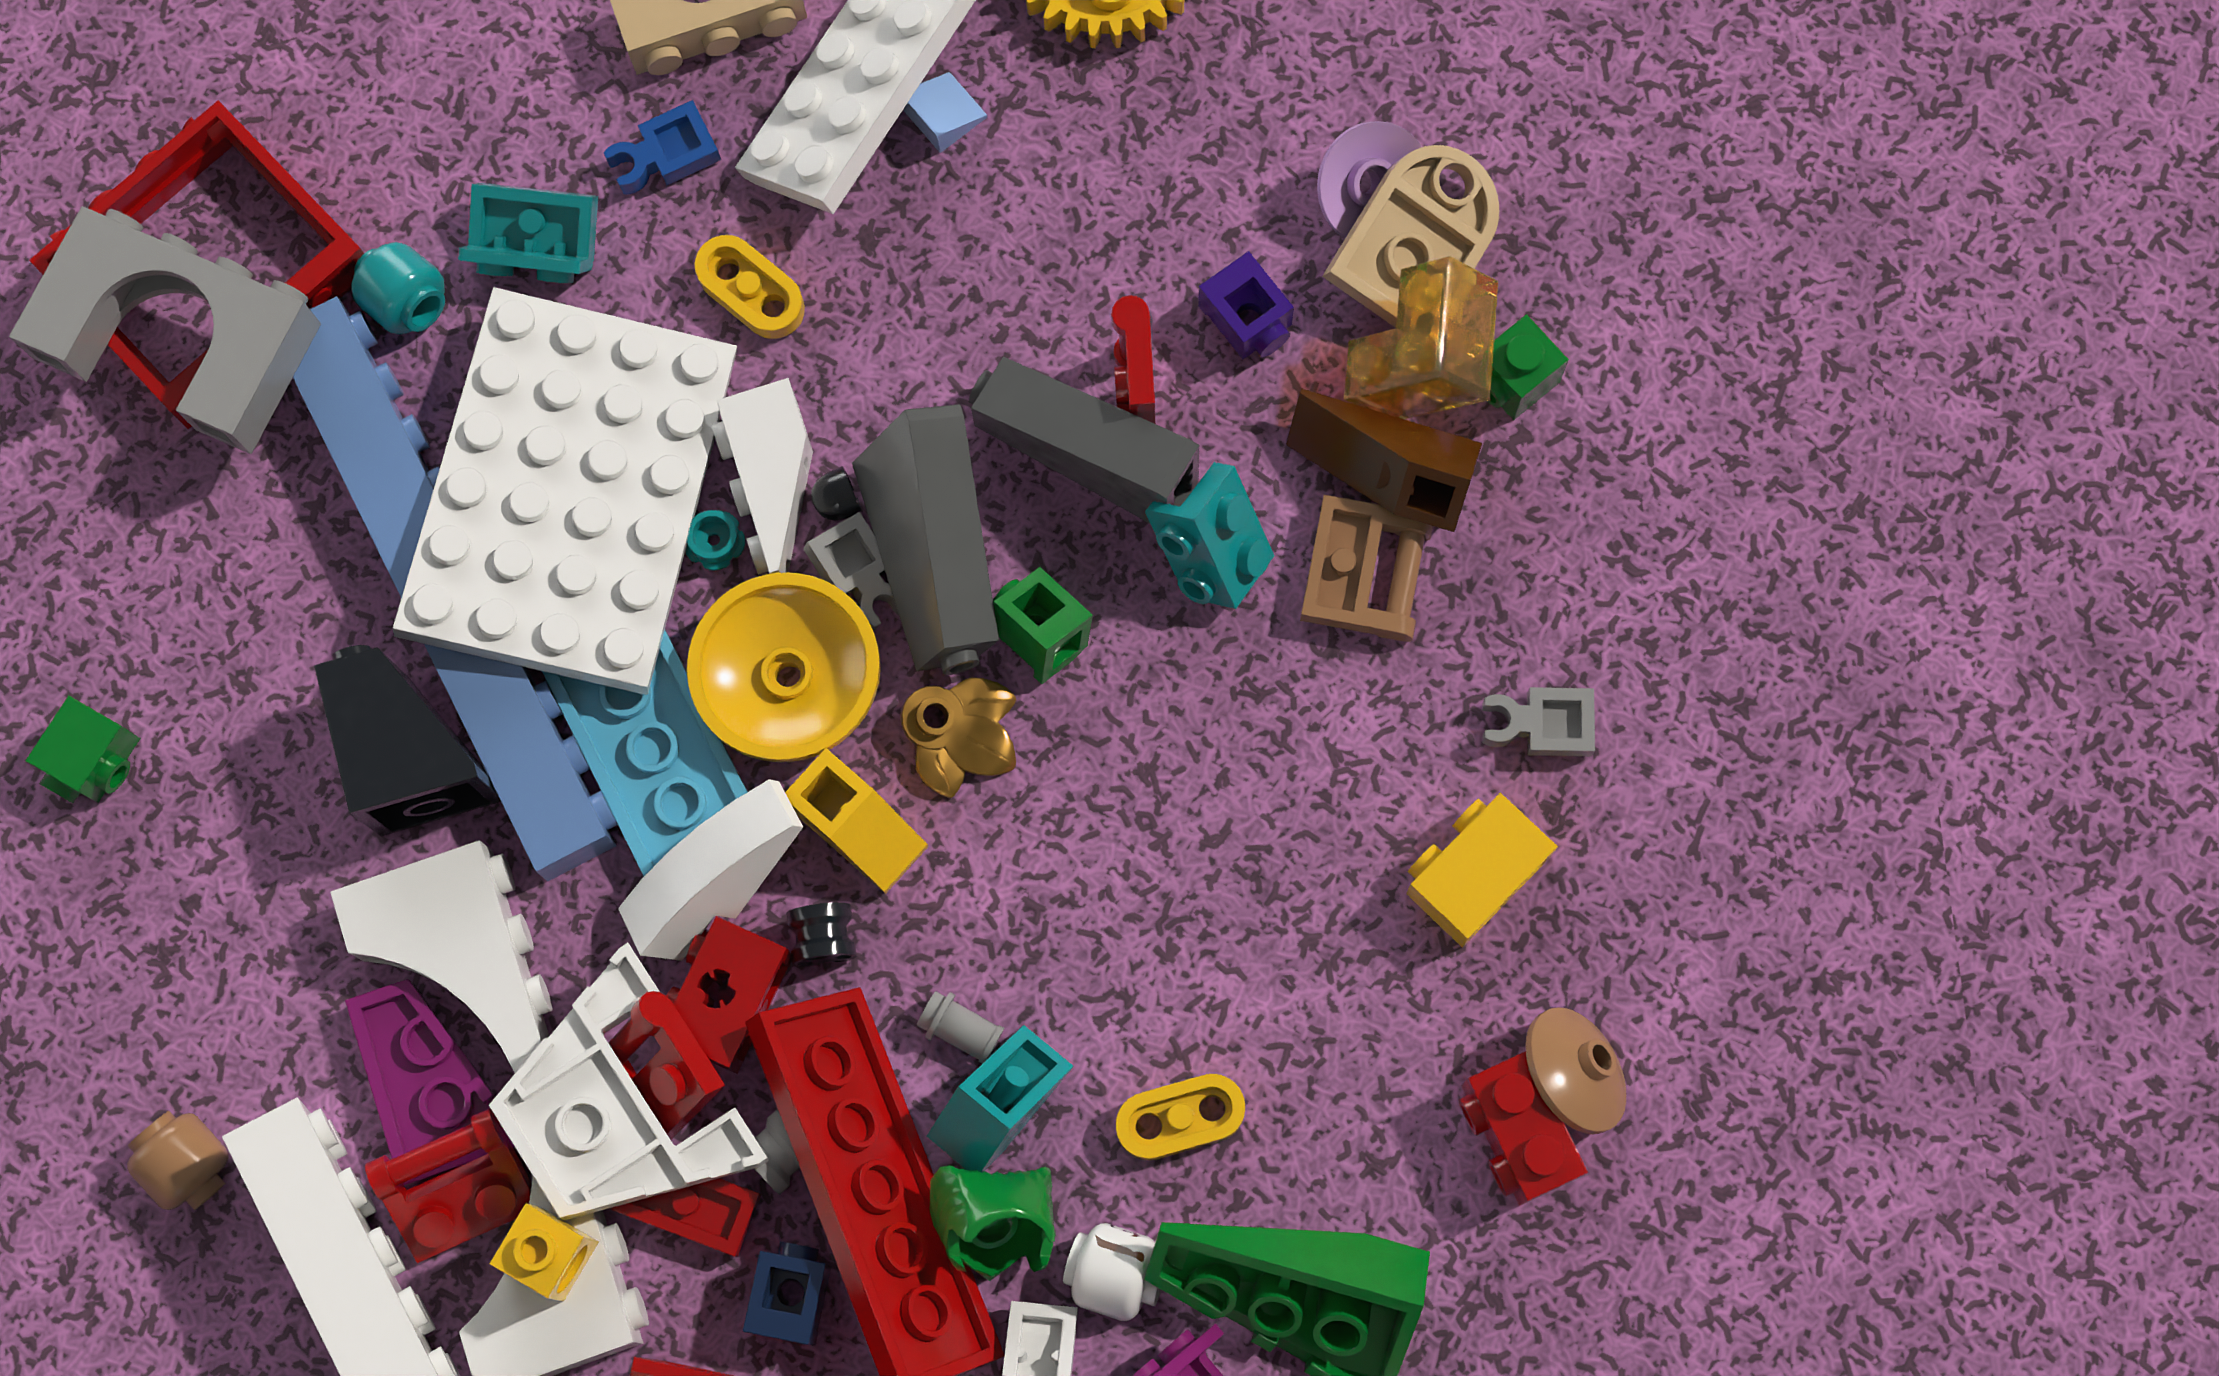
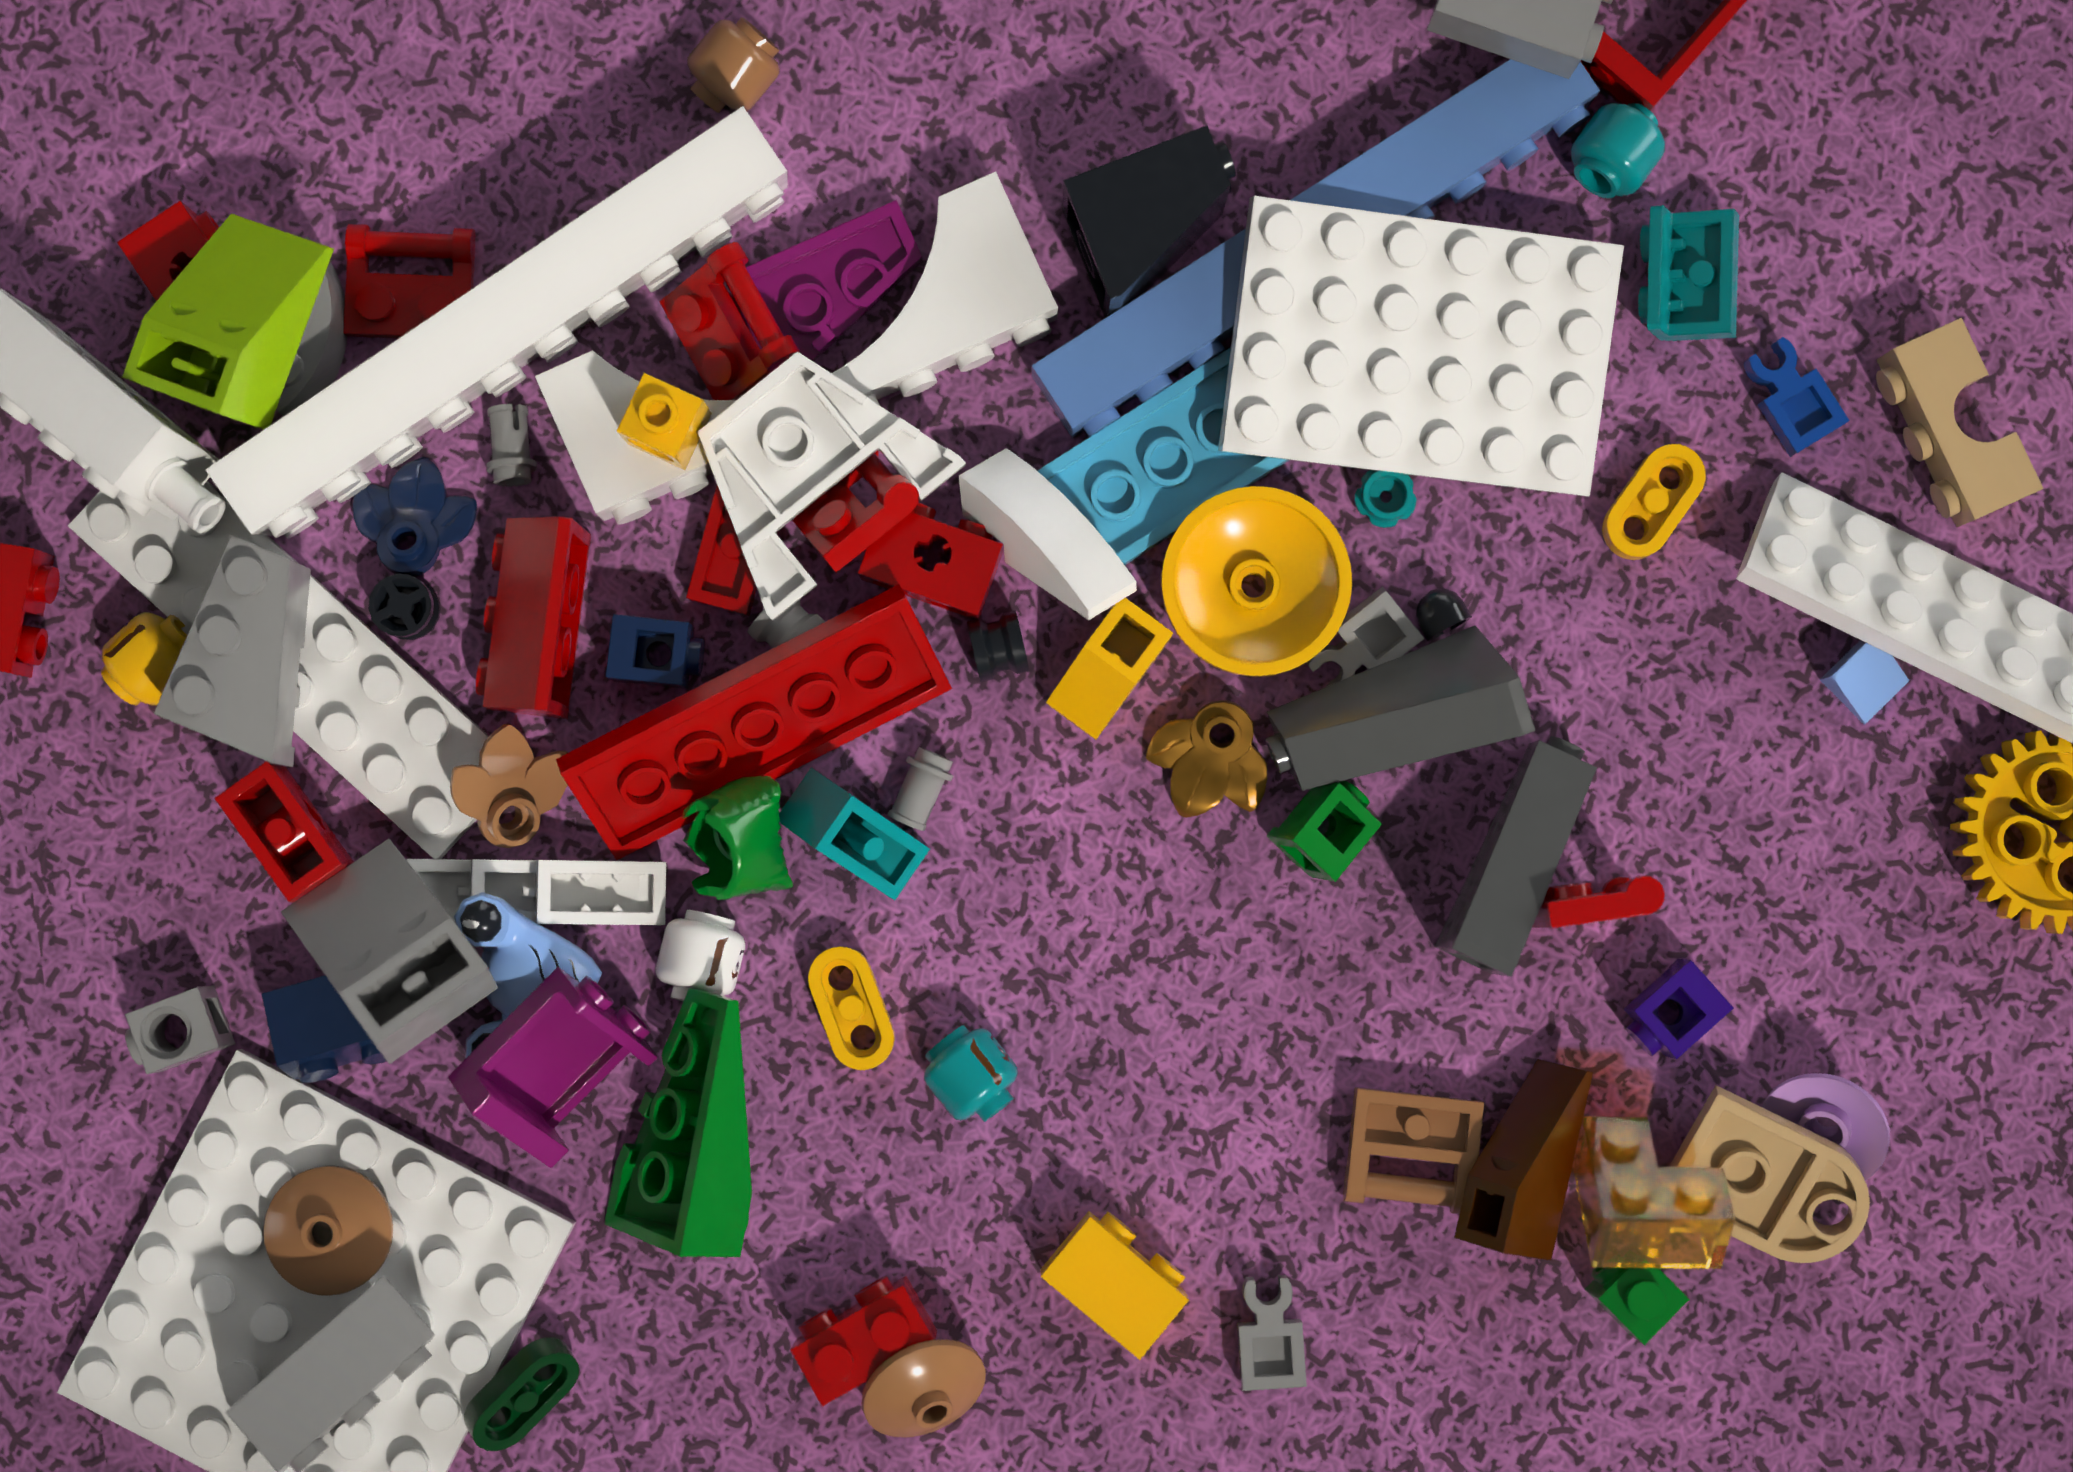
camera: 80 degrees right, 10 degrees up
(773, 463) = (1469, 546): white slope -> none
(1213, 539) = (1421, 998): teal bracket -> none
(1258, 998) = (970, 1074): none -> teal head

